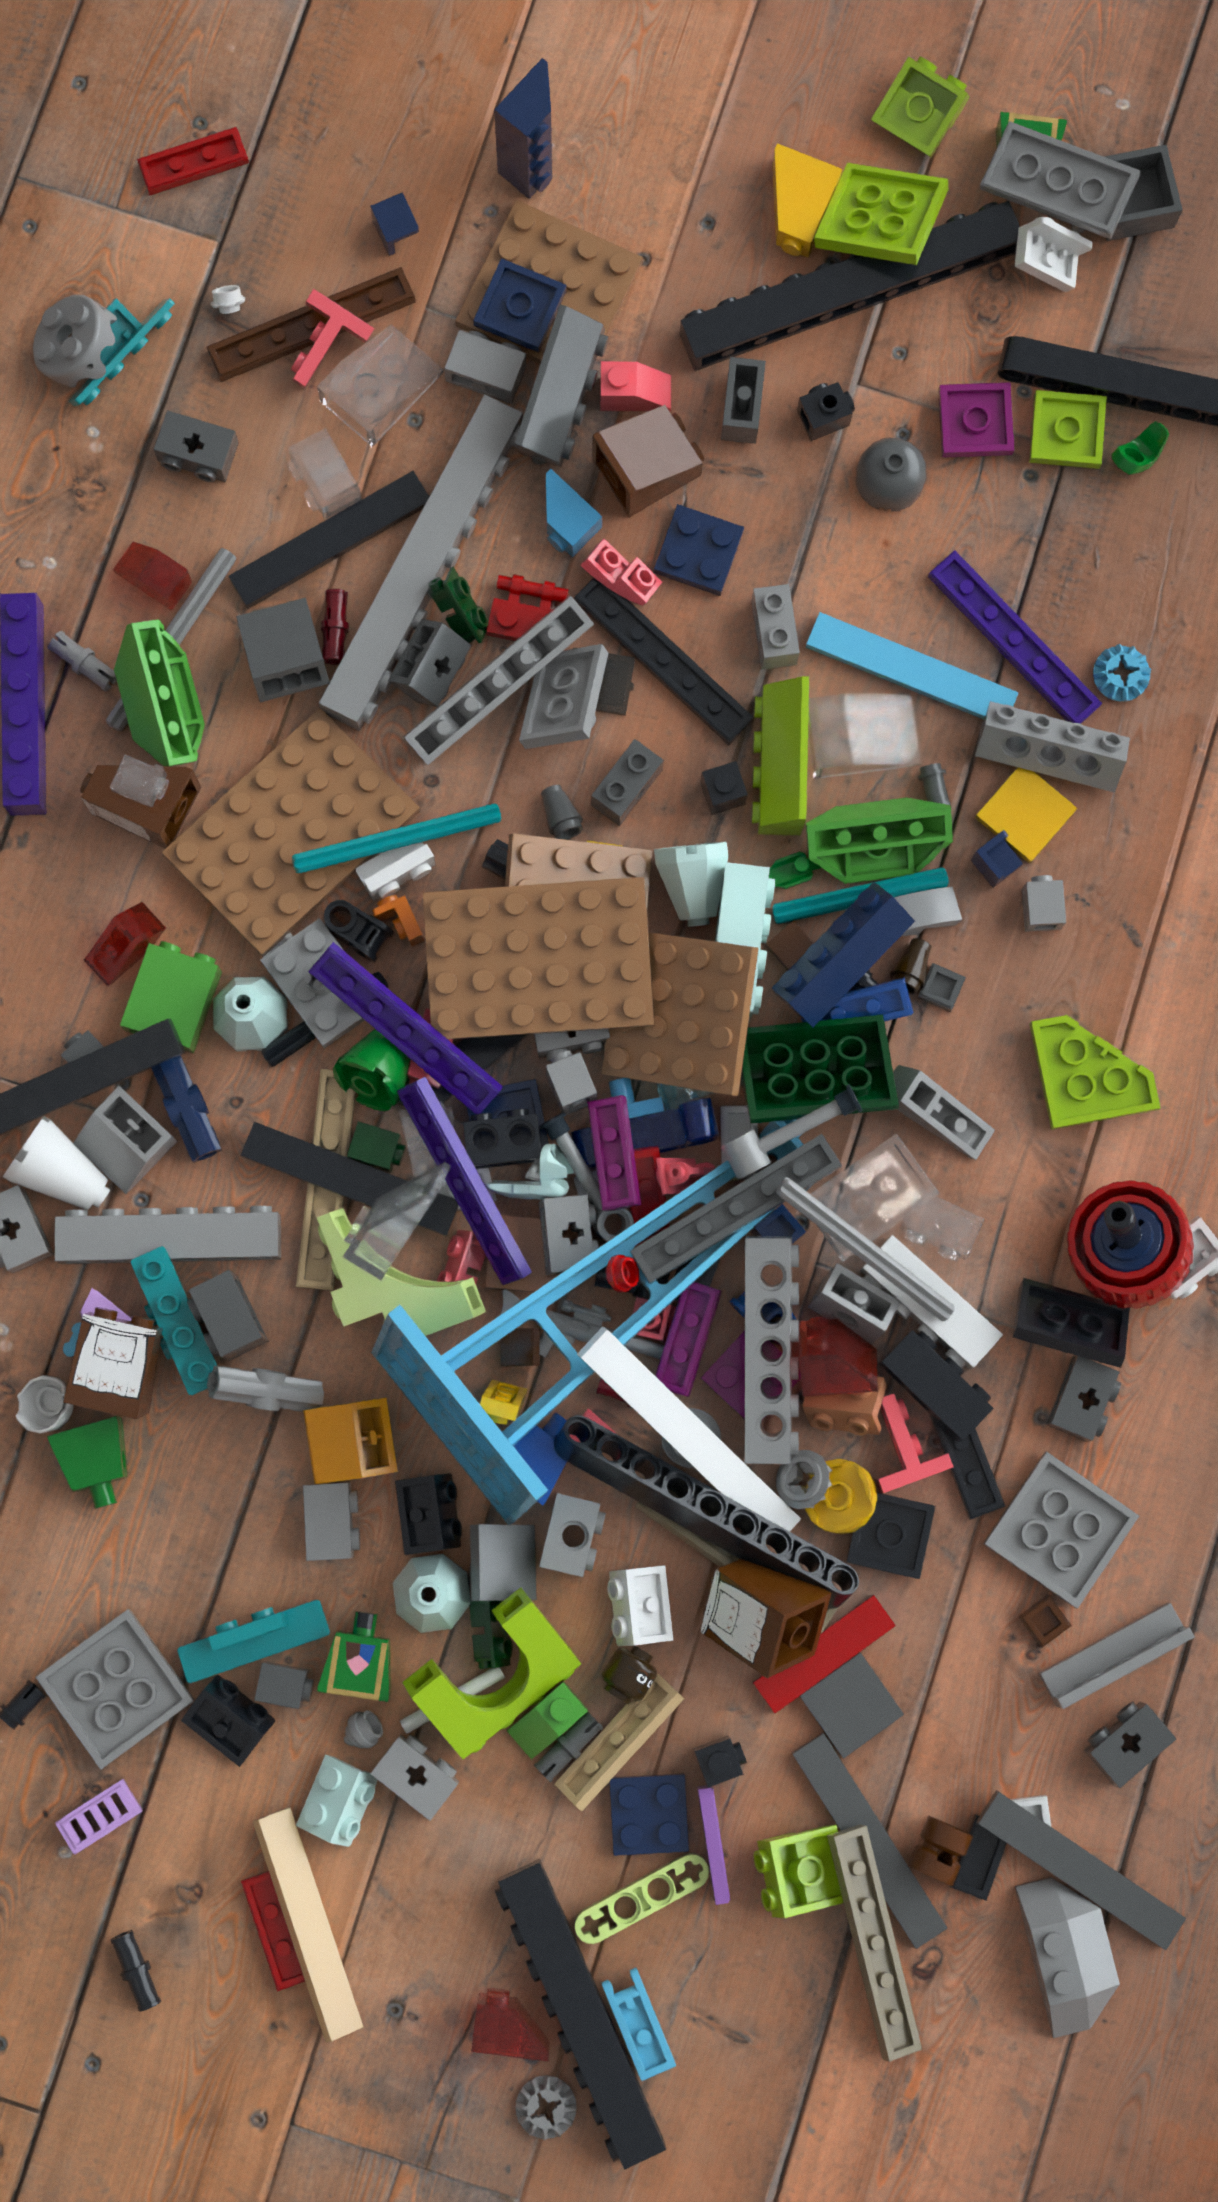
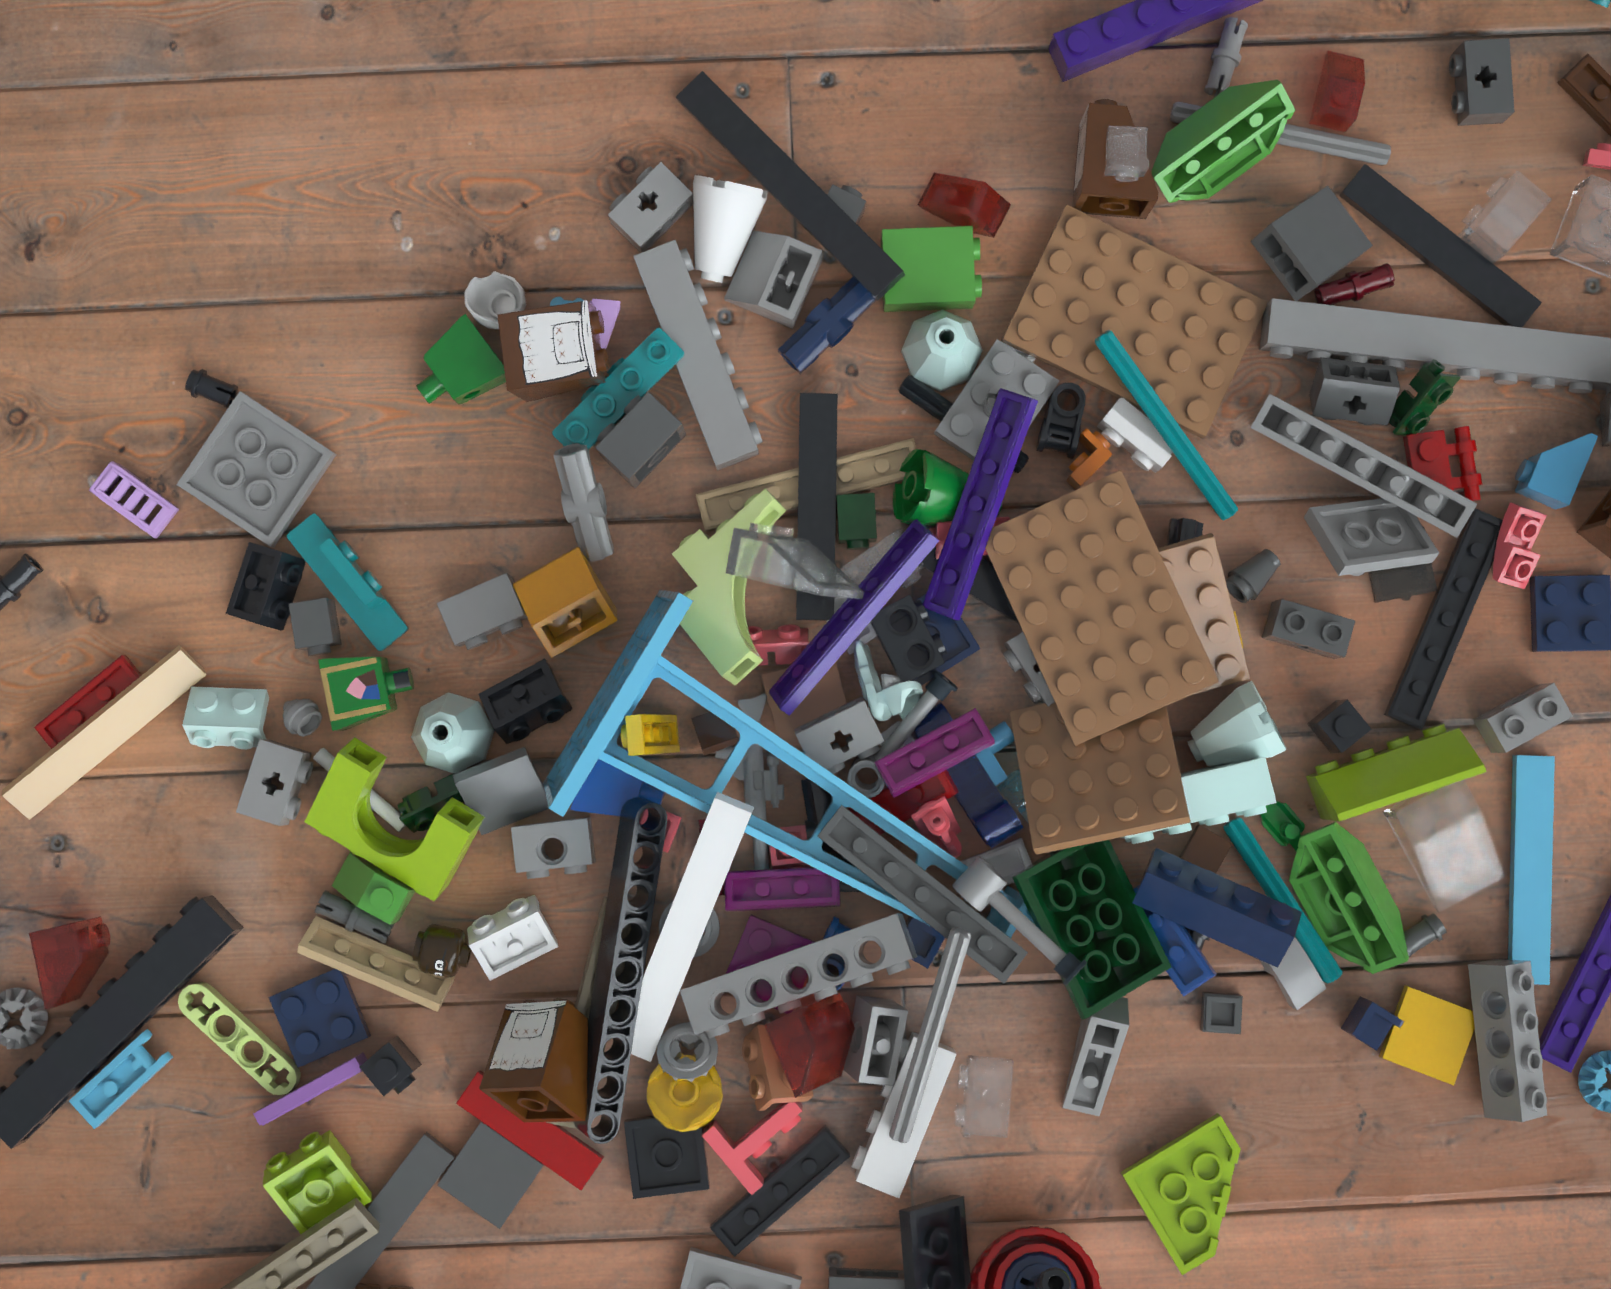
camera: 75 degrees right, 5 degrees up
(570, 1082) = (989, 684): light grey brick -> none
(622, 1273) = (816, 805): red plate -> none
(876, 1192) = (993, 1023): clear slope -> none
(913, 965) = (1232, 977): dark brown cone -> none
(937, 1384) = (826, 1150): black brick -> none
(1043, 904) = (1343, 1086): light grey brick -> none

